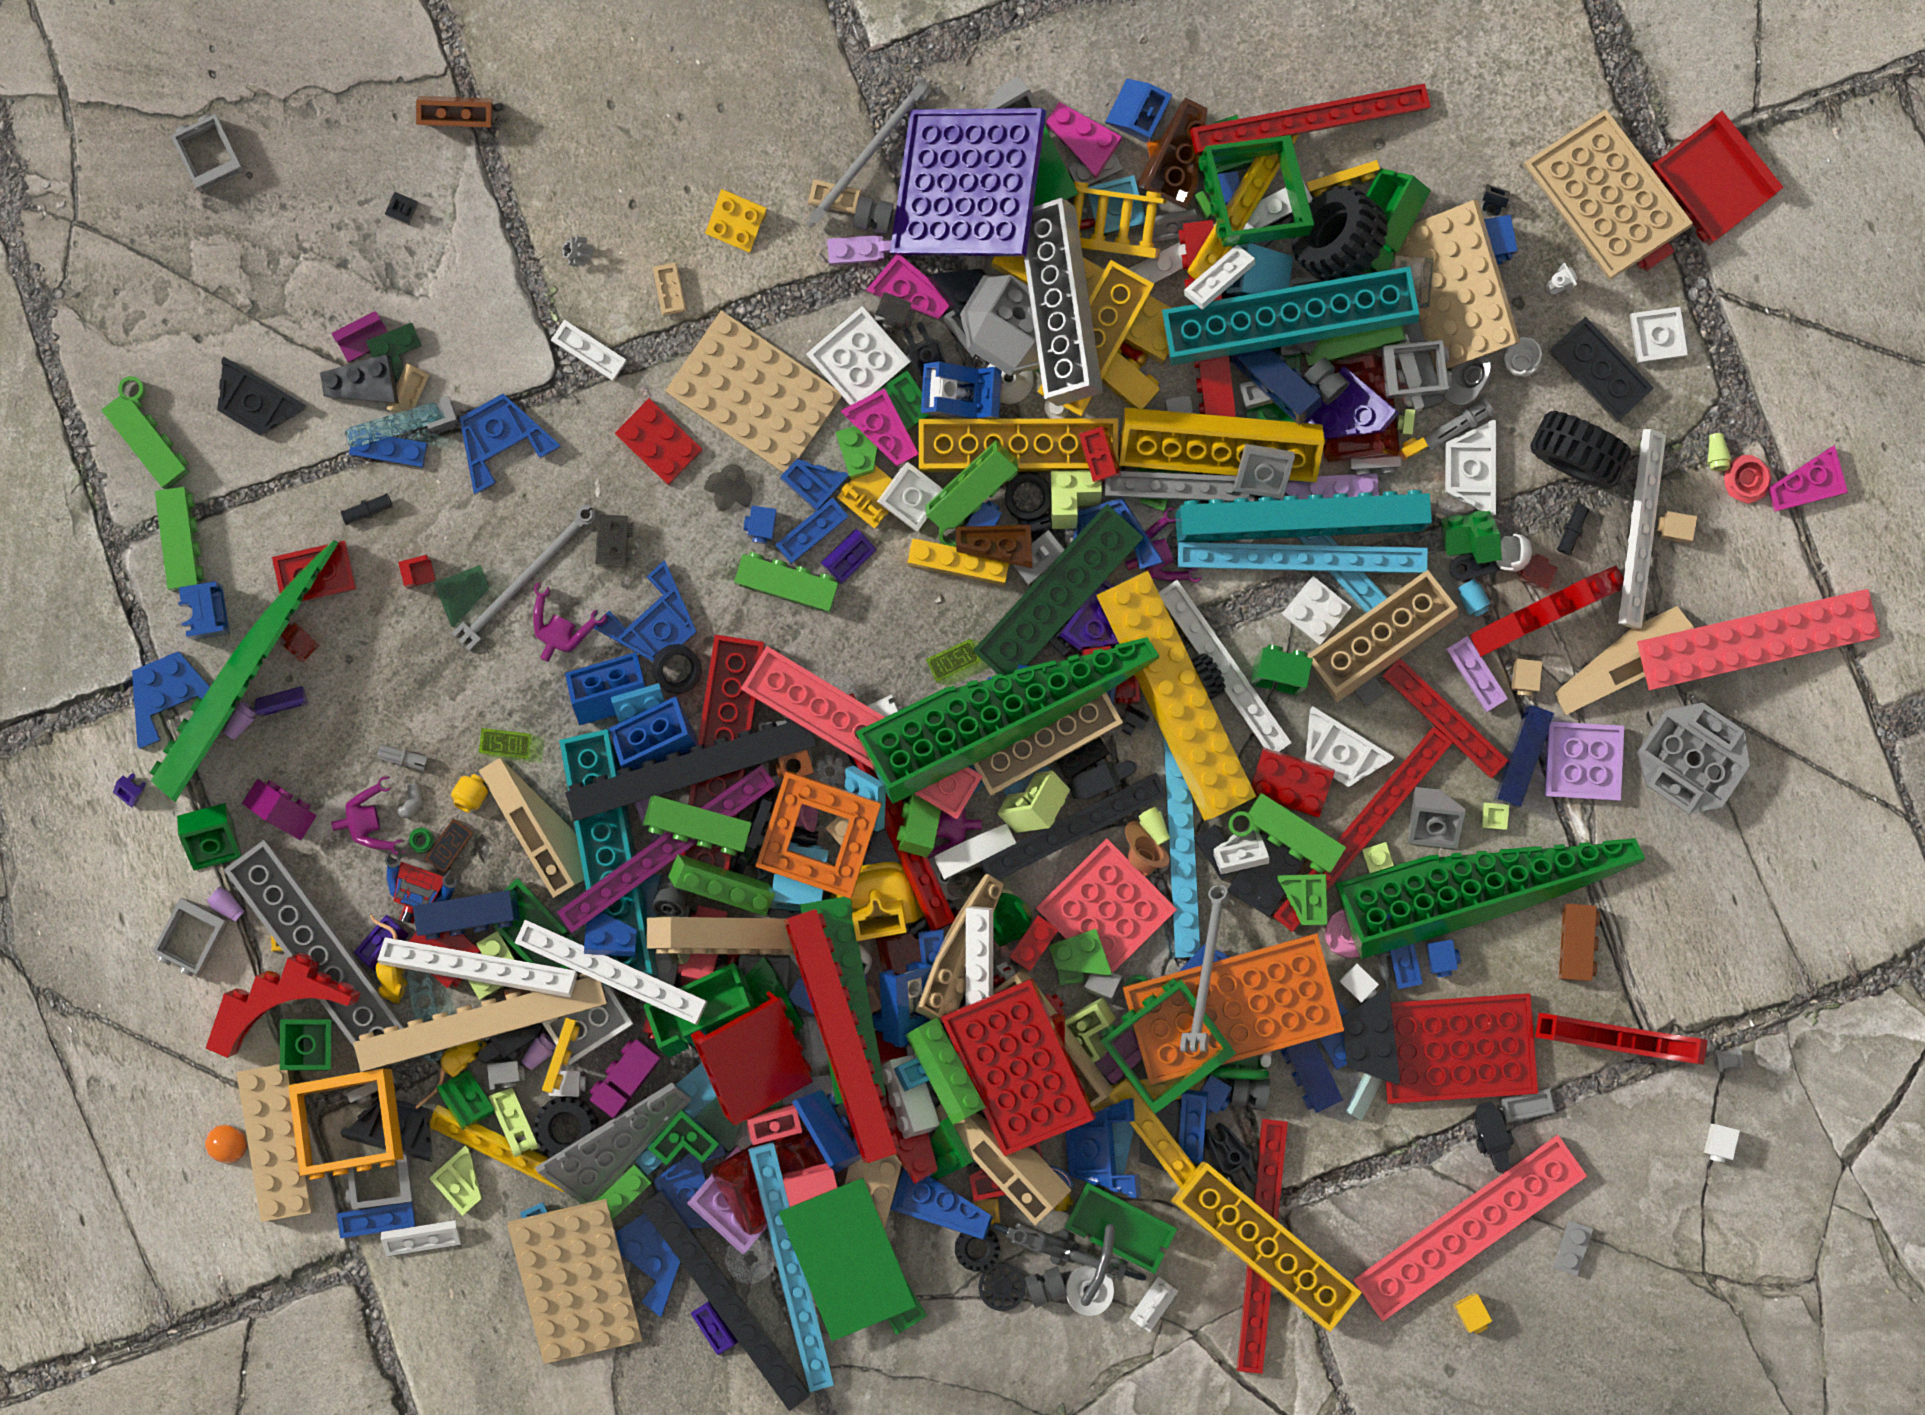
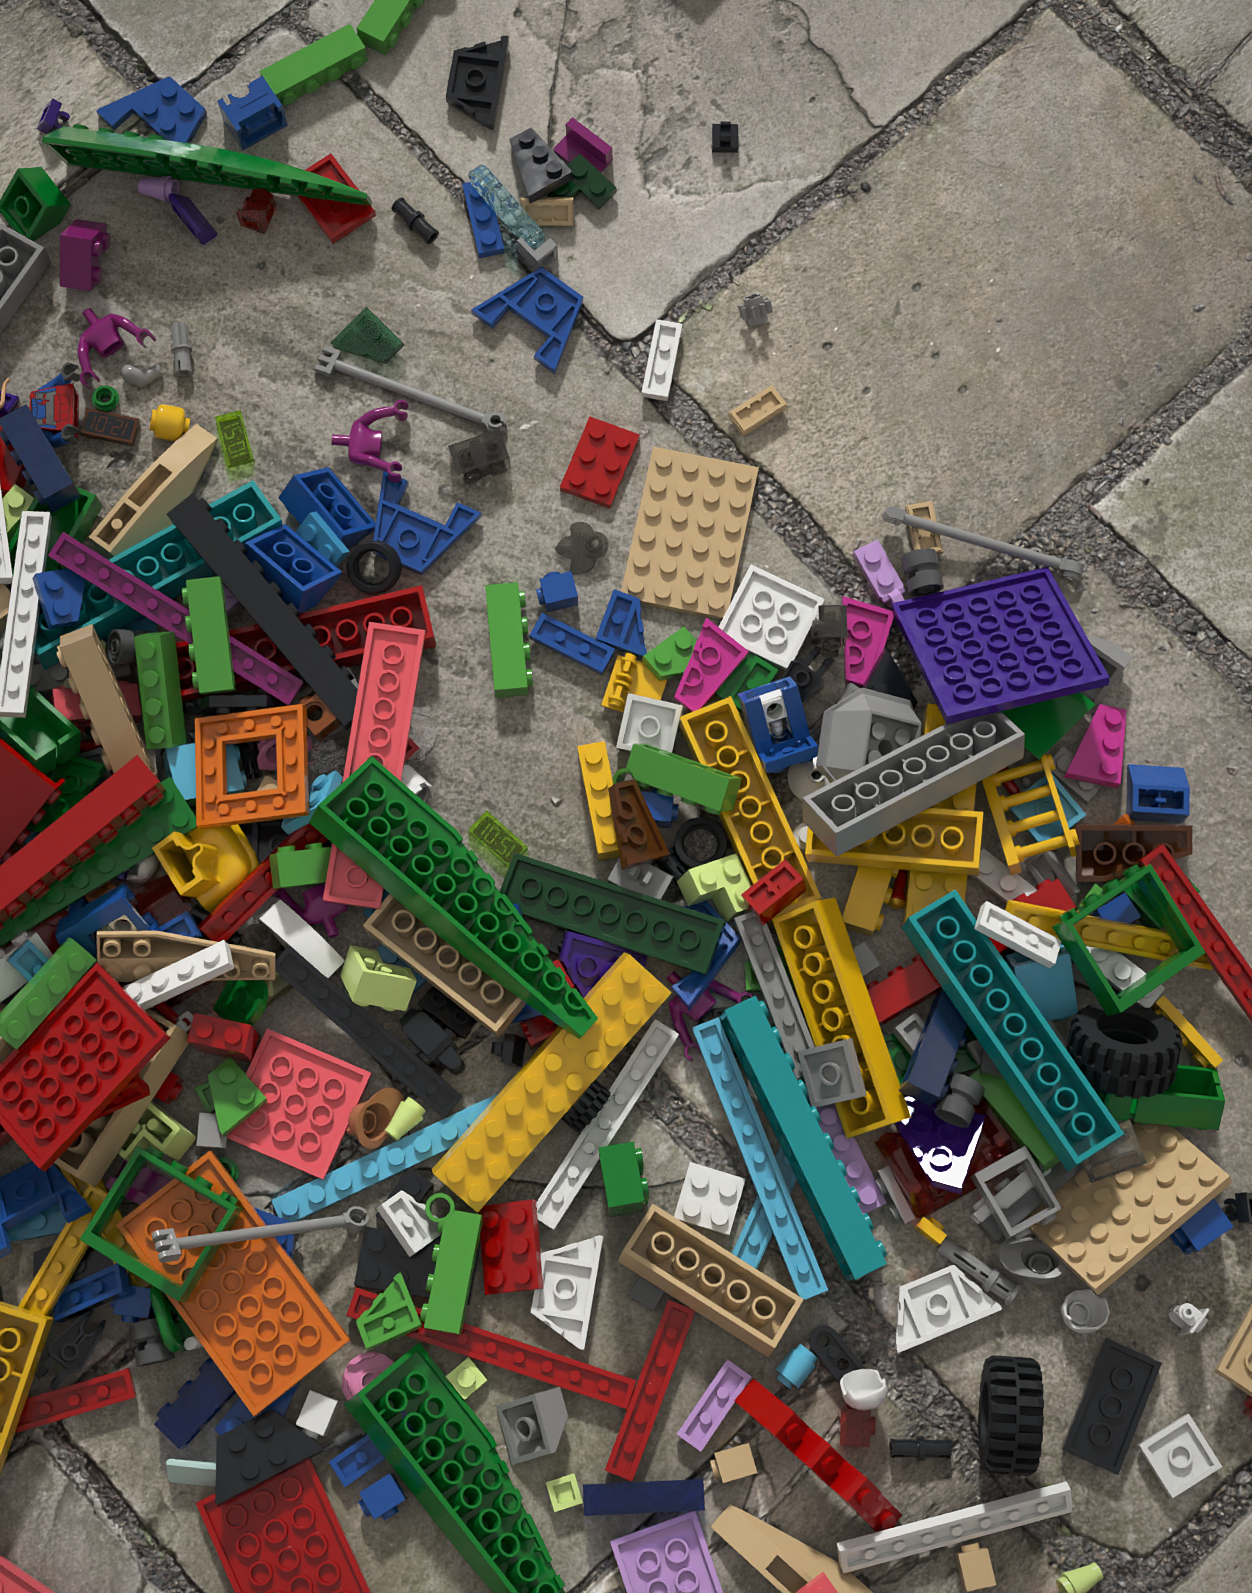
camera: 70 degrees right, 10 degrees down
(417, 571) = (372, 288): red panel -> none
(454, 111) = (840, 143): dark orange brick -> none
(735, 220) = (856, 445): yellow hinge -> none
(848, 555) = (562, 692): dark purple slope -> none
(1406, 423) = (954, 1211): yellowish green plate -> none
(1472, 534) = (864, 1334): green brick -> none

